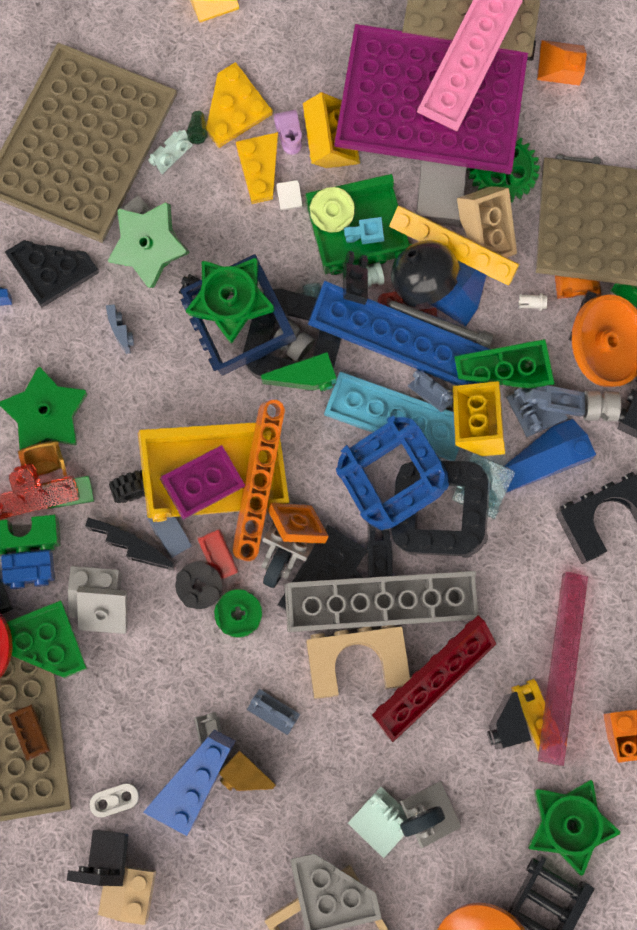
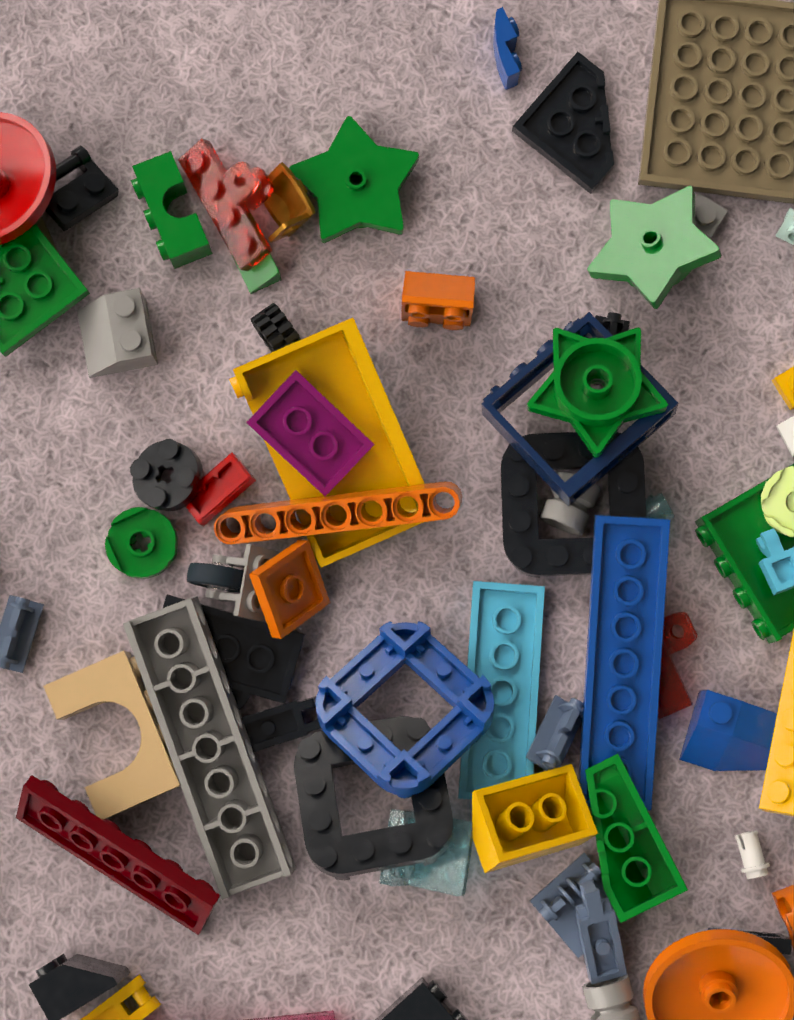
camera: 80 degrees right, 5 degrees up
(28, 568) = (126, 234): blue brick -> none
(102, 610) = (92, 350): light grey plate -> none
(120, 331) = (504, 253): sand blue slope -> none
(137, 549) = (195, 373): black slope -> none
(138, 382) = (437, 300): none -> orange slope
(170, 535) = (224, 417): sand blue slope -> none
(307, 374) = (519, 540): green slope -> none
(355, 279) = (689, 567): black hinge -> none
(375, 275) = (714, 593): light aqua wheel -> none
(424, 273) = (737, 671): black cylinder -> none
(482, 338) = (664, 787): dark grey piece -> none
(552, 453) = (517, 948): blue wedge -> none

